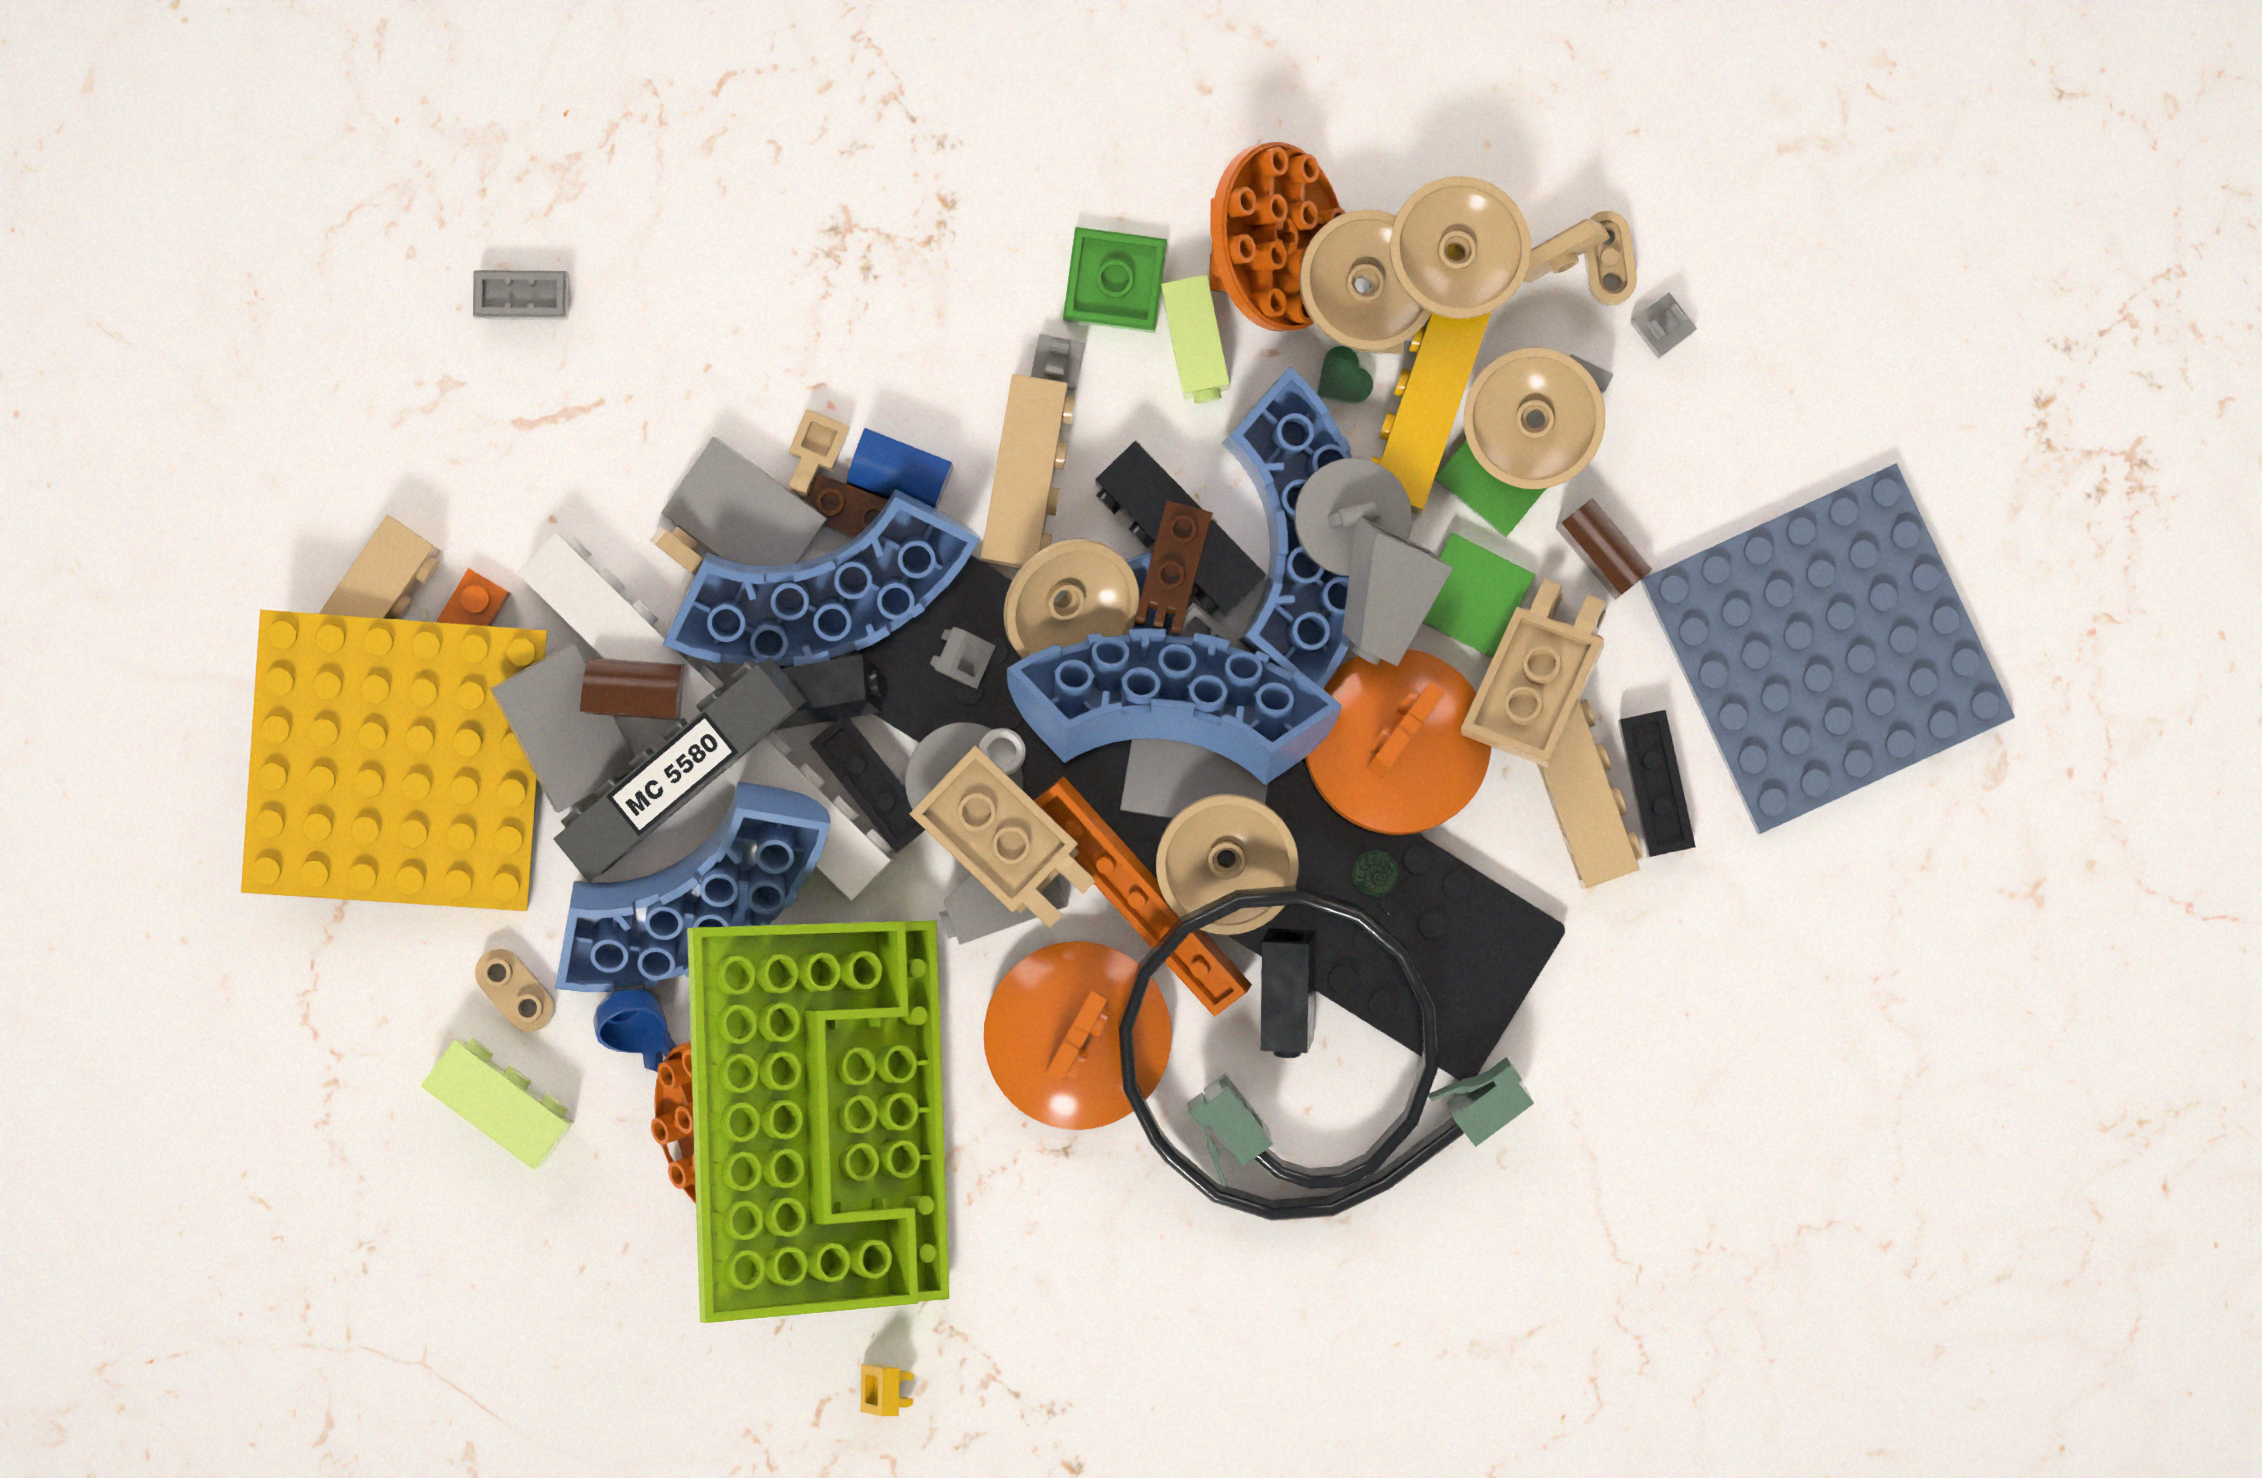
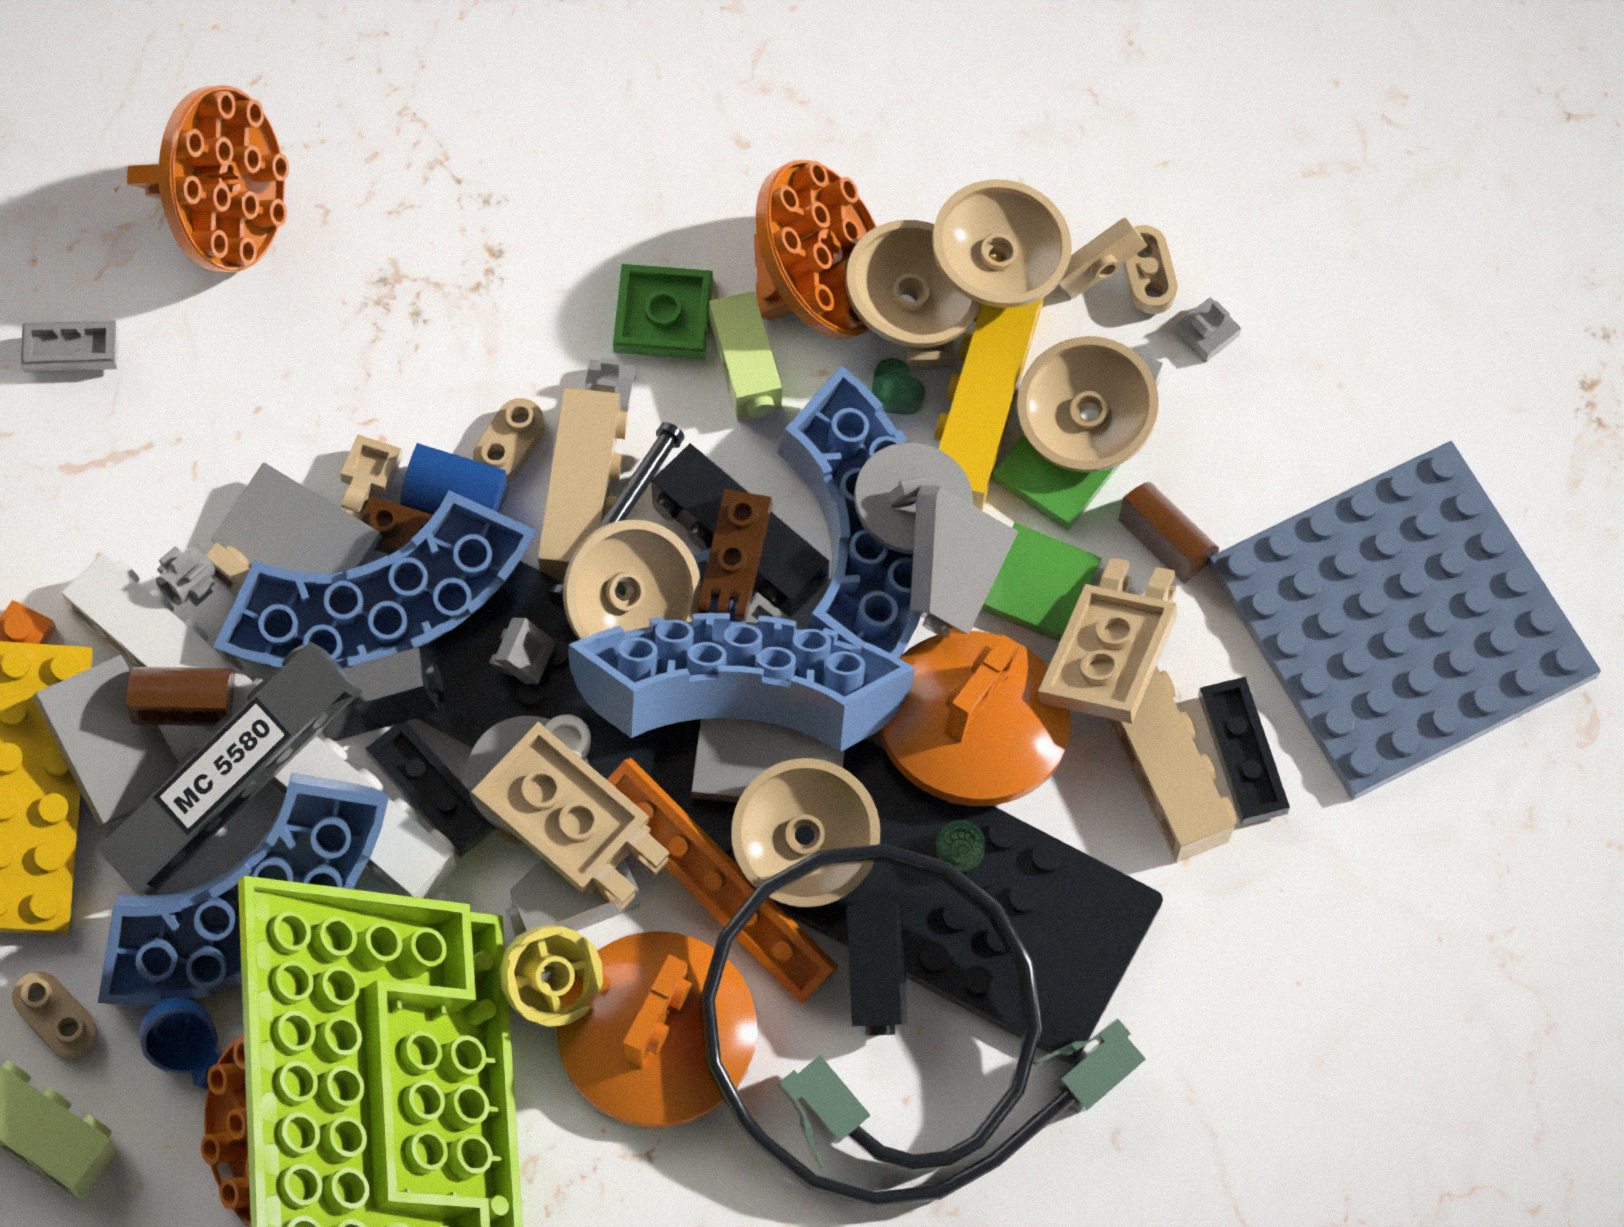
camera: 10 degrees left, 20 degrees down
(636, 562) = (185, 576): none -> light grey gear
(670, 134) = (219, 178): none -> orange bracket
(956, 416) = (511, 438): none -> tan plate
(969, 987) = (557, 955): none -> light yellow cylinder
(1112, 433) = (668, 437): none -> black bar

